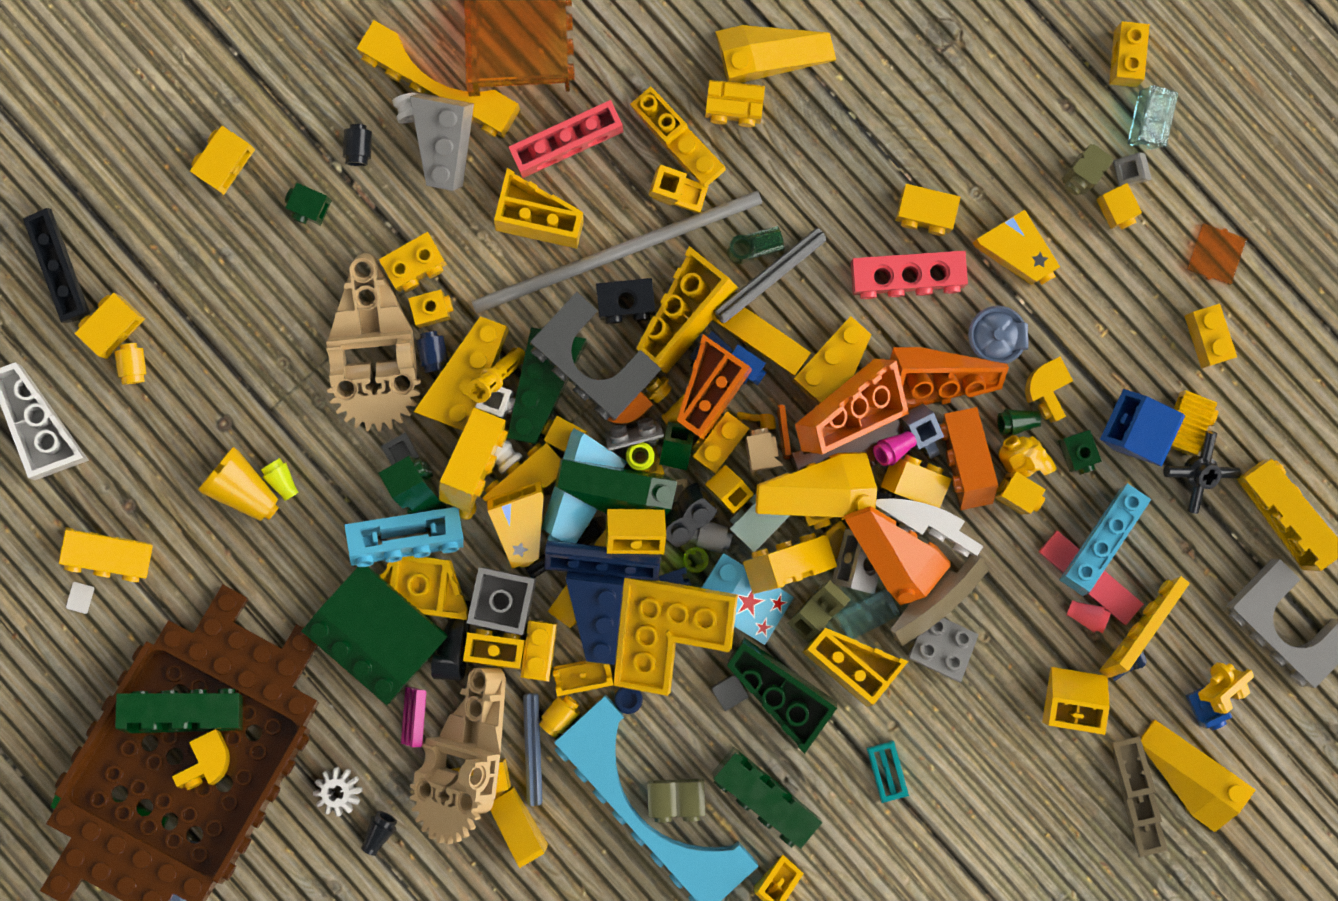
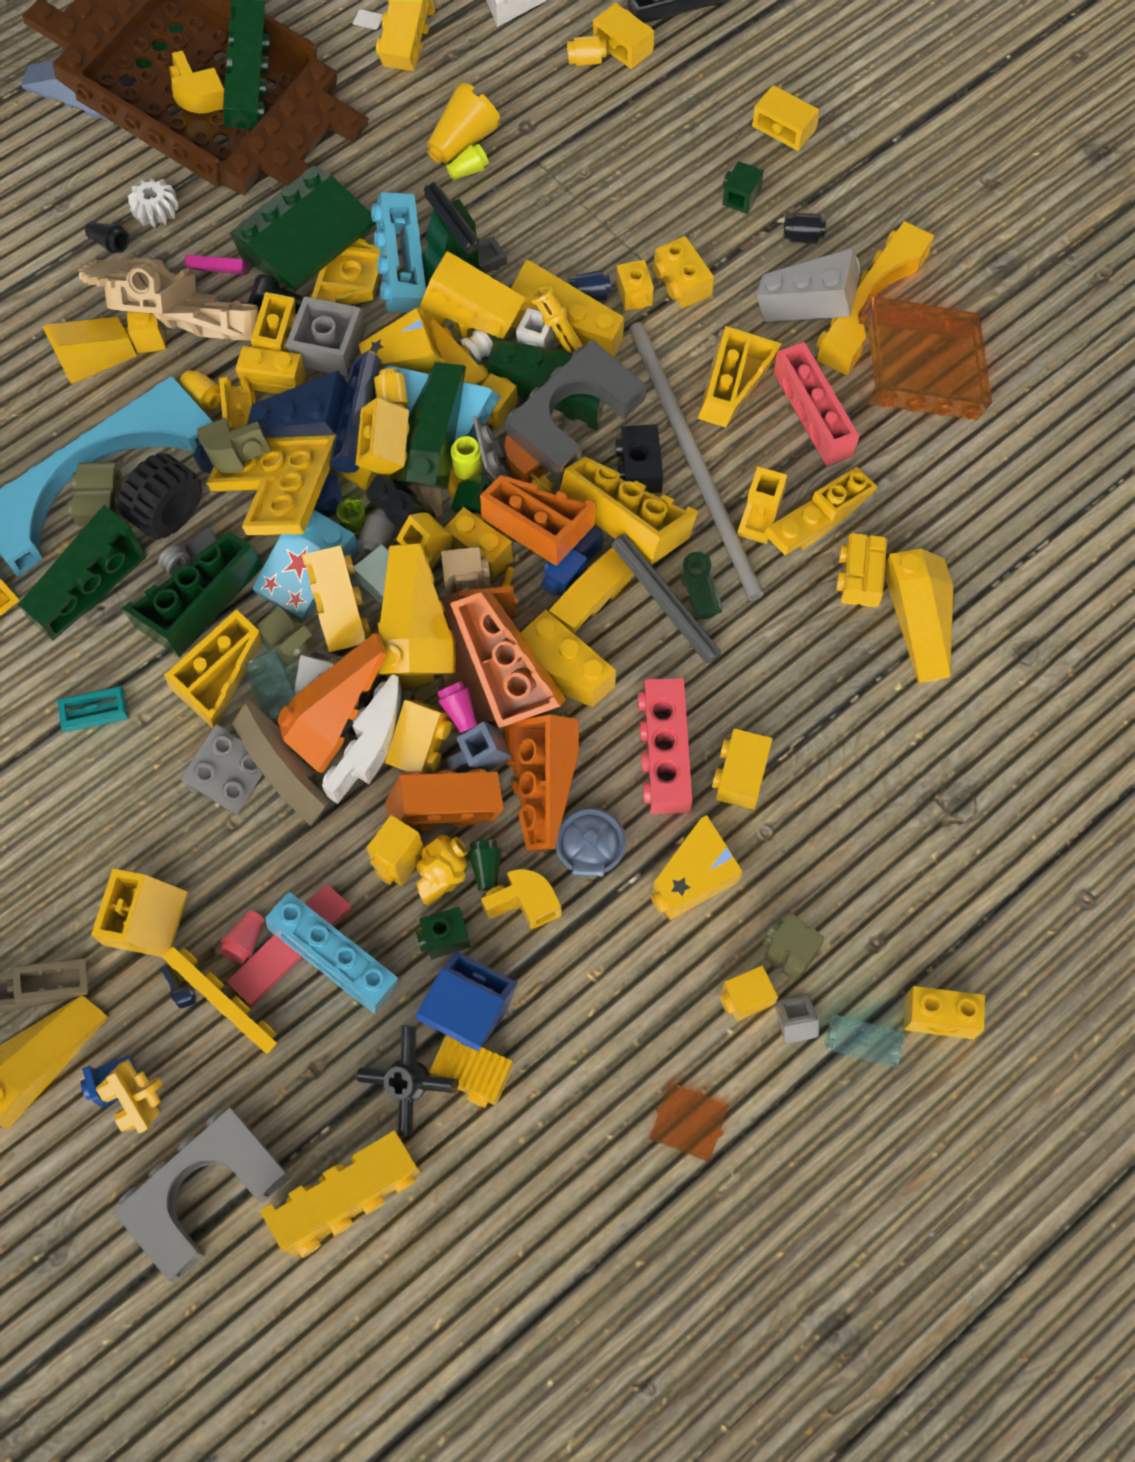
camera: 90 degrees right, 20 degrees down
(371, 325) = (624, 232): tan connector -> none
(407, 478) = (451, 218): none -> black axle
(532, 749) = (168, 368): sand blue axle -> none
(584, 527) = (391, 387): none -> yellow brick
(638, 680) = (231, 448): none -> olive brick
(689, 734) = (160, 495): none -> black tyre
(742, 717) = (173, 558): none -> light grey bush
(1210, 336) = (581, 1100): yellow brick -> none

